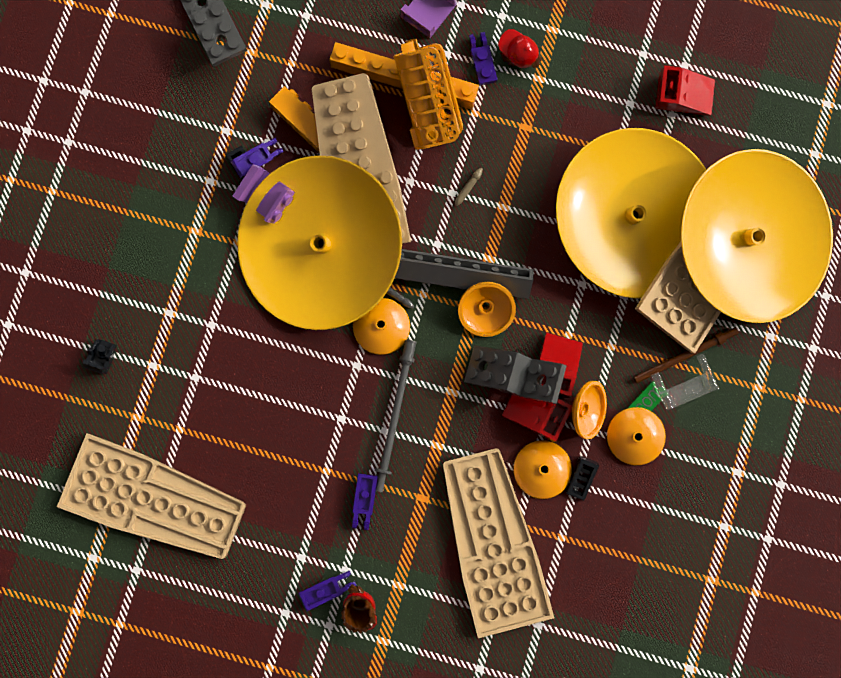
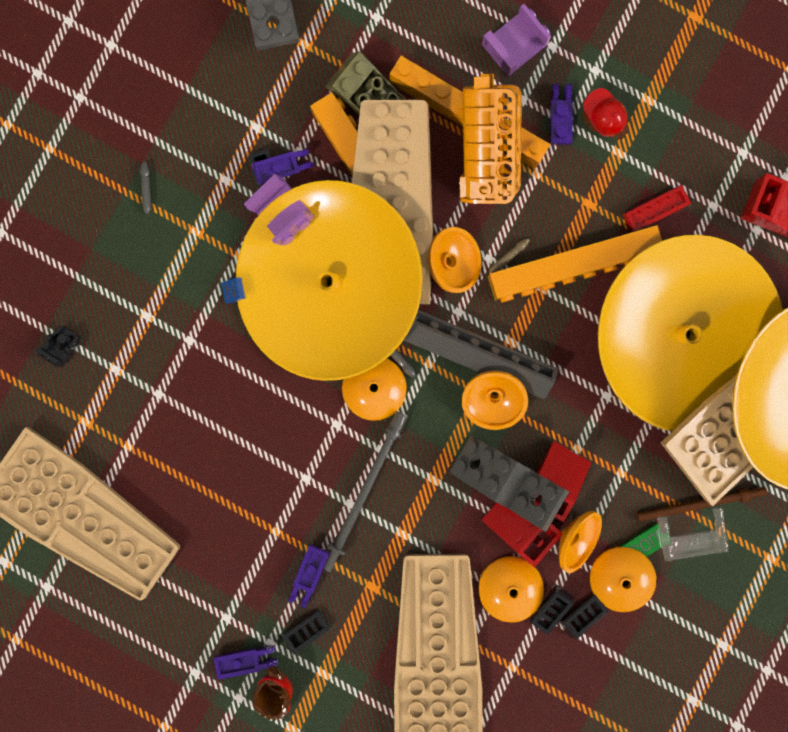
camera: 20 degrees right, 5 degrees up
(143, 204) = (145, 187): none -> dark grey piece
(239, 272) = (233, 290): none -> blue tile
(305, 71) = (360, 81): none -> olive slope
(384, 538) = (310, 638): none -> black slope
(423, 200) = (454, 260): none -> light orange dish
(520, 181) = (571, 264): none -> light orange brick
(582, 117) = (656, 209): none -> red plate
(599, 488) = (588, 622): none -> black slope

